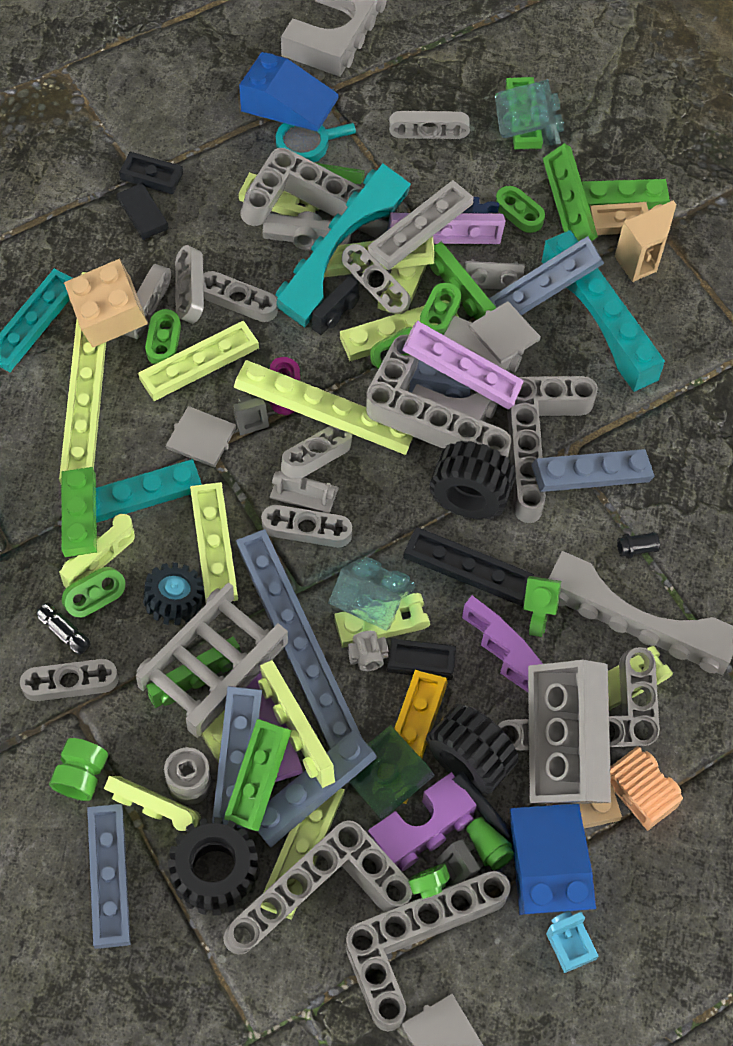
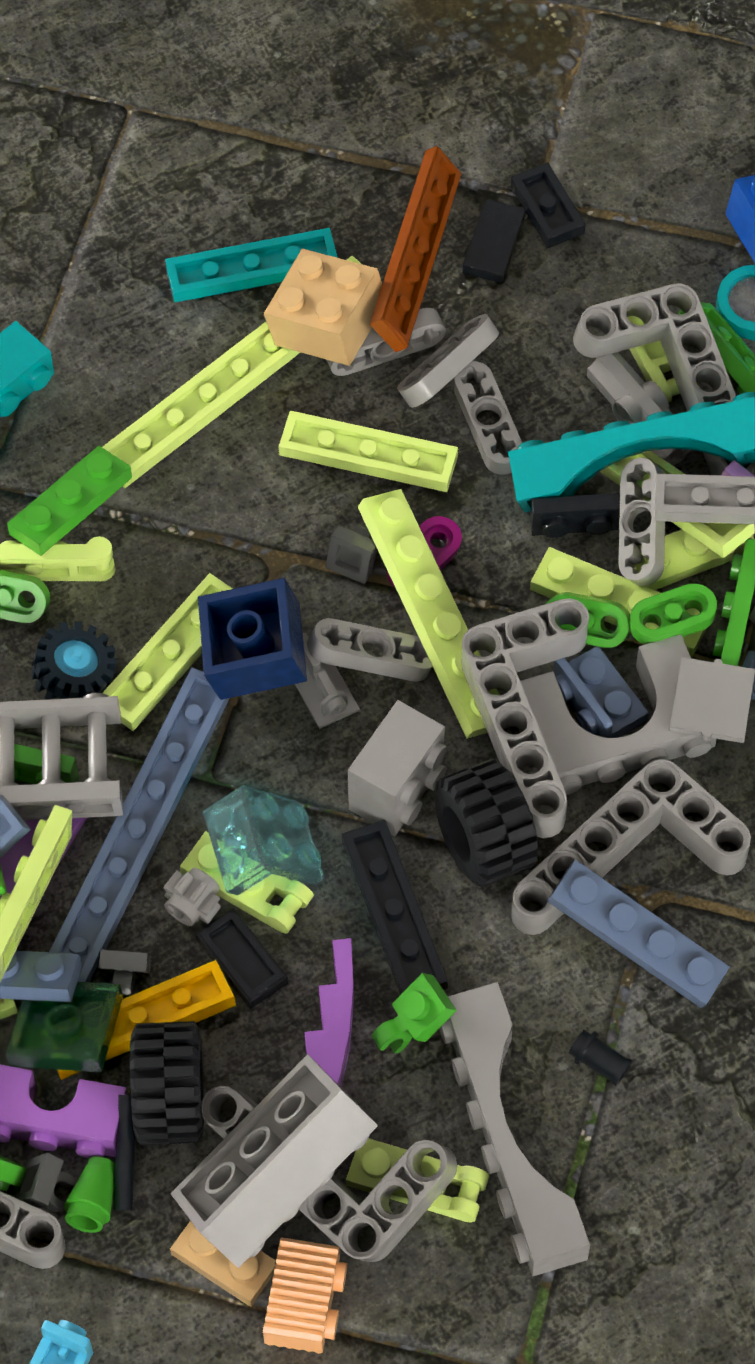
camera: 50 degrees right, 0 degrees up
(117, 241) = (415, 249): none -> dark orange tile
(146, 490) = (166, 538): teal plate -> none
(161, 339) = (356, 394): bright green plate -> none
(201, 436) = (285, 533): light grey piece -> none
(260, 493) = (252, 639): none -> dark blue brick
(330, 520) = (284, 739): light grey beam -> none
(375, 716) = (125, 967): none -> dark grey tile
(399, 493) = (397, 768): none -> light grey brick
(463, 365) = (607, 691): lavender plate -> none
(551, 859) = (124, 1267): blue slope -> none

